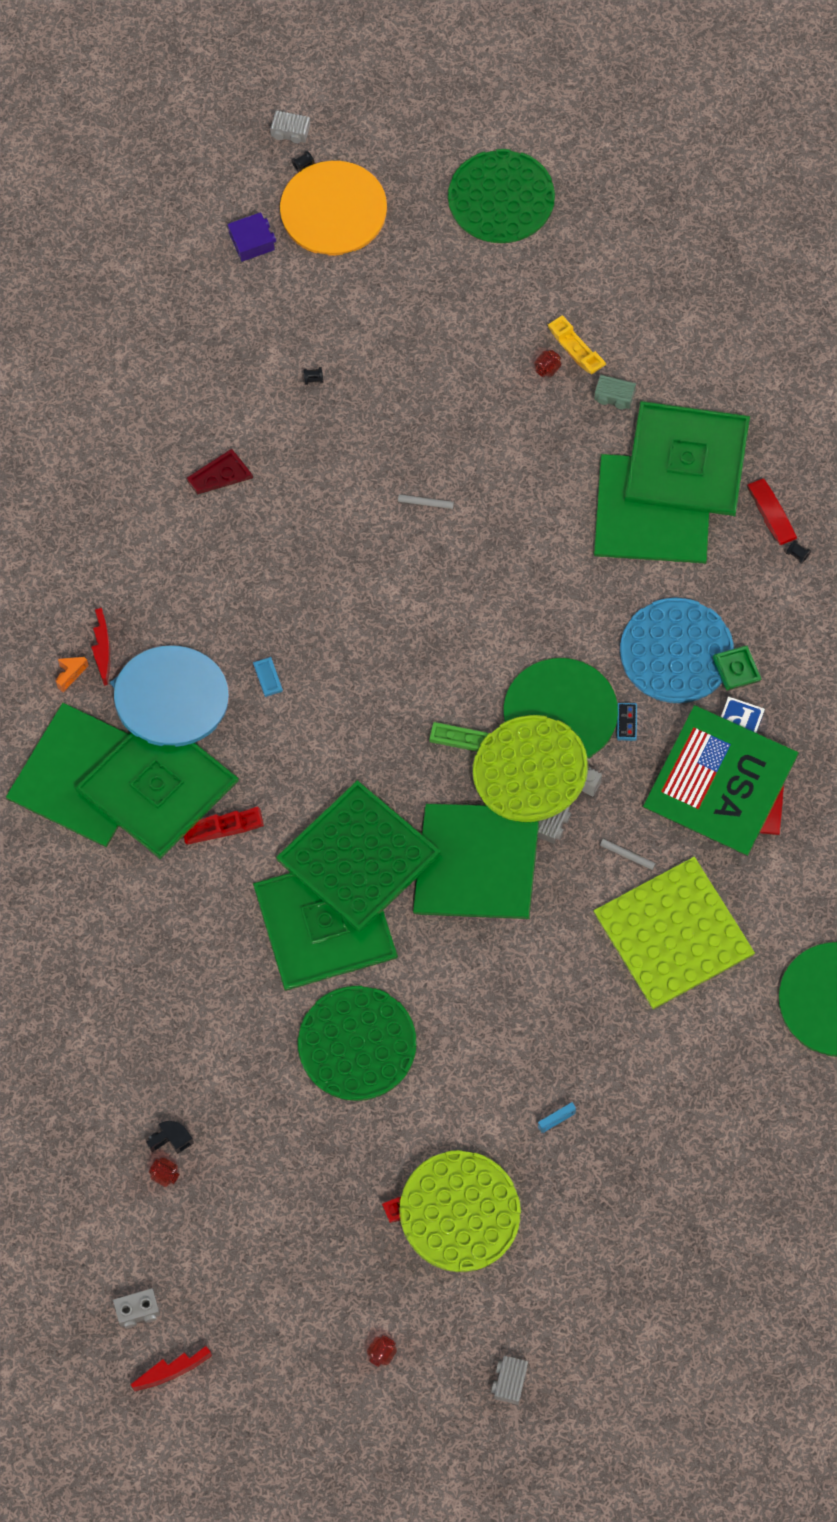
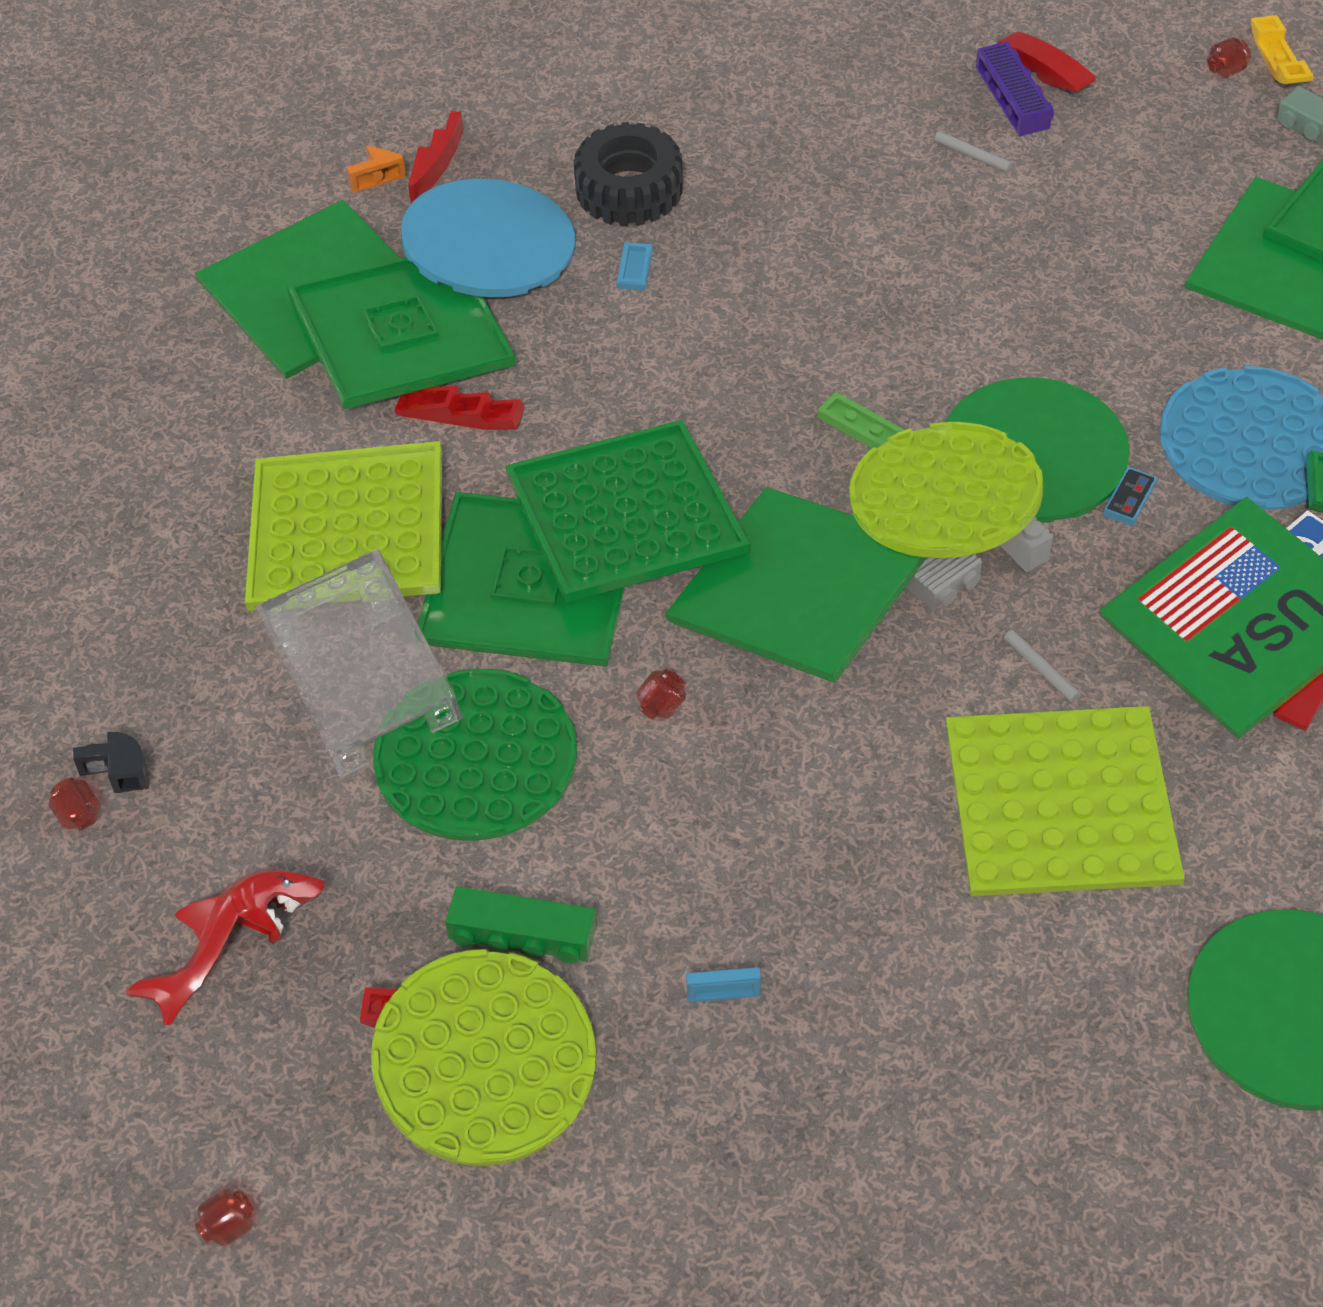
camera: 25 degrees right, 15 degrees down
(205, 934) = (343, 504): none -> lime plate
(219, 473) = (710, 35): dark red wing -> none
(231, 591) = (628, 197): none -> black tyre
(273, 1023) = (356, 658): none -> clear windscreen
(288, 1202) = (213, 922): none -> red piece
(429, 442) = (1014, 88): none -> dark purple brick
(439, 411) = (1049, 62): none -> red slope
(439, 965) = (661, 694): none -> clear red head
(439, 1131) = (521, 924): none -> green brick

